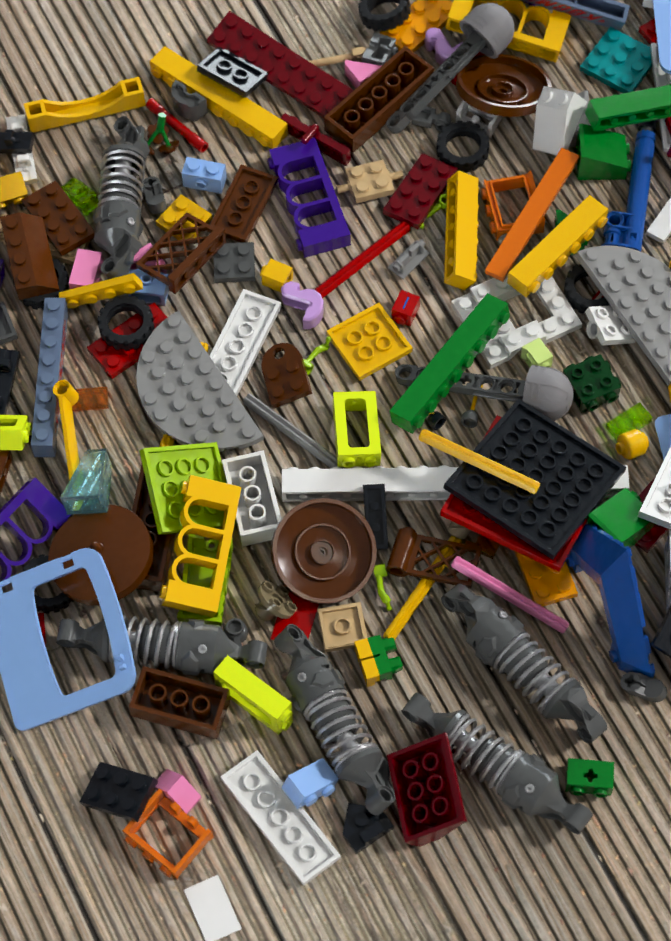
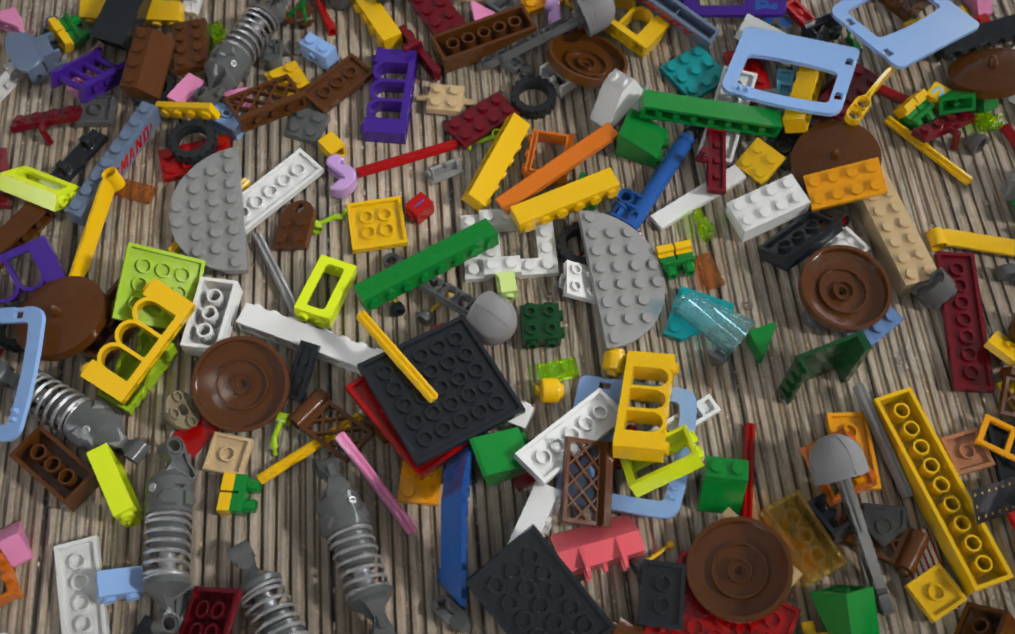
camera: 20 degrees right, 0 degrees up
(89, 485) = (88, 257): clear light blue slope -> none
(236, 631) = (140, 425): dark grey piece -> none

